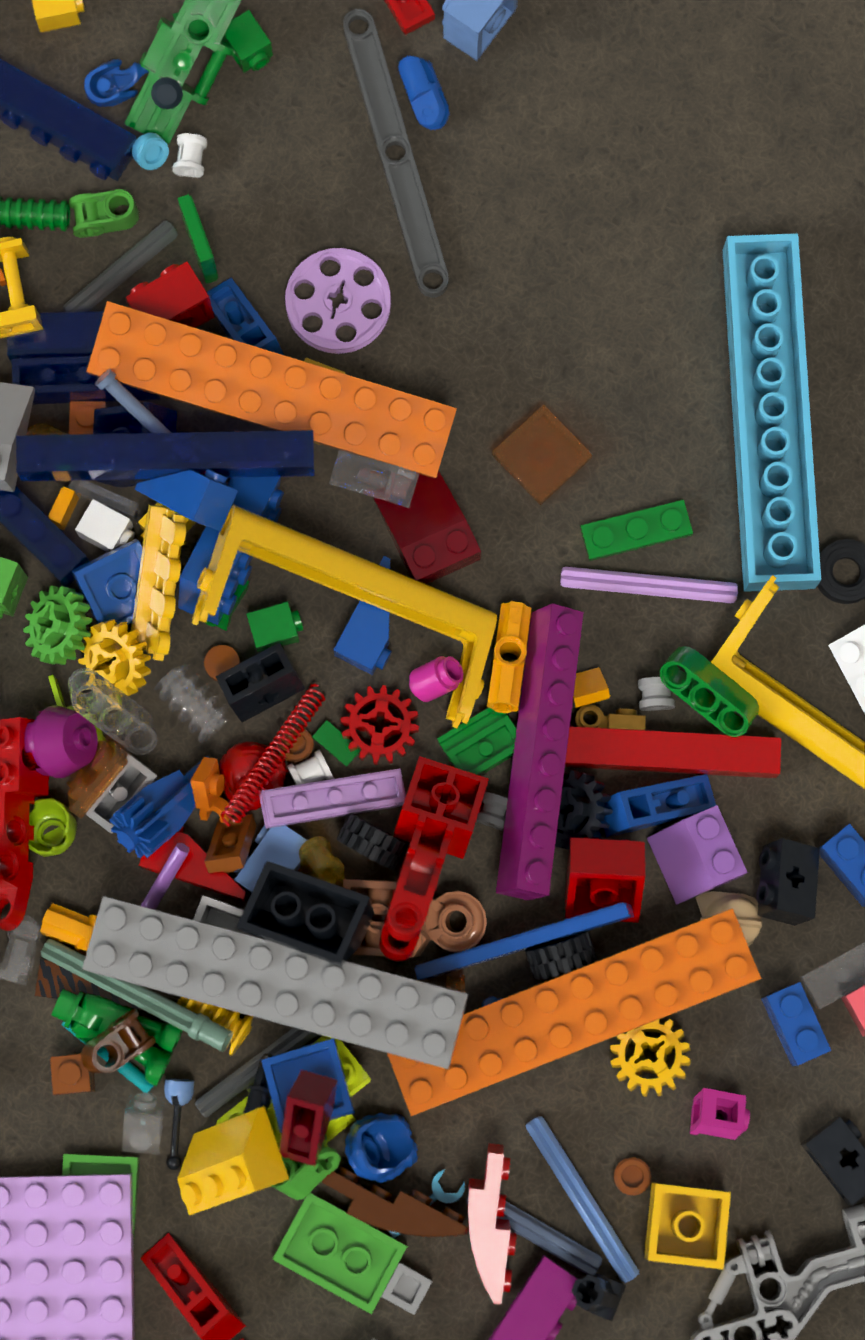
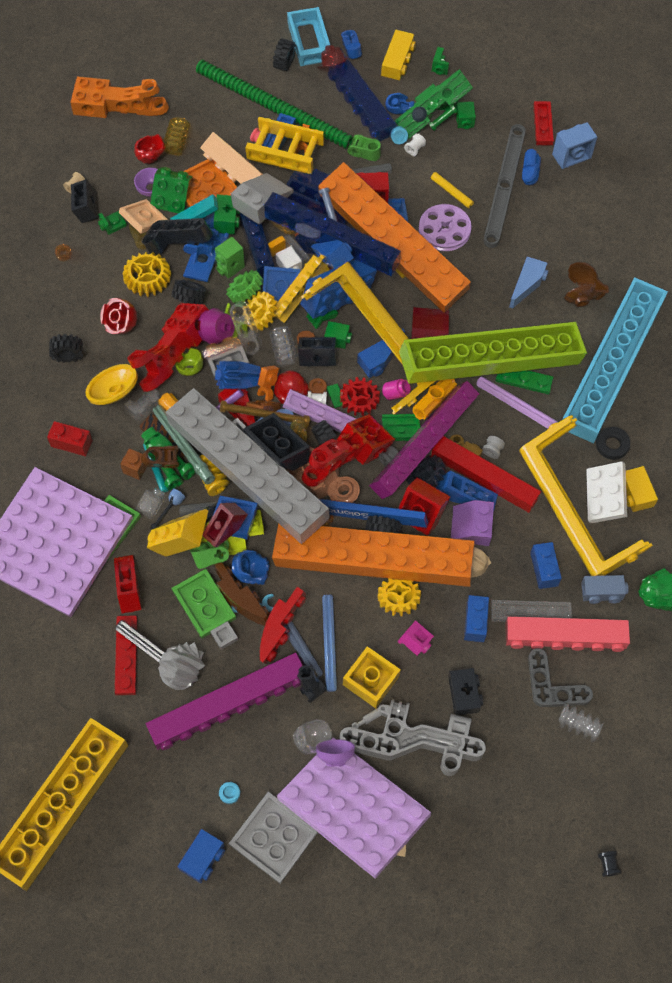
camera: 30 degrees right, 15 degrees down
(180, 903) = (224, 406): none -> pearl gold bar
(198, 238) = (398, 172): green tile -> none
(272, 752) = (305, 375): red piece -> none
(307, 214) = (466, 201): none -> yellow piece
(374, 478) = (417, 296): clear brick -> none
(542, 454) = (497, 320): clear orange plate -> none
(543, 322) = (530, 279): none -> medium blue slope
(565, 526) = (491, 352): none -> lime brick
(590, 687) = (463, 429): light orange tile -> none
(632, 1176) = (358, 645): dark orange tile -> none
(644, 272) = (590, 285): none -> reddish brown animal
(715, 708) = (525, 458): green beam -> none
(788, 881) = (508, 554): black brick -> none

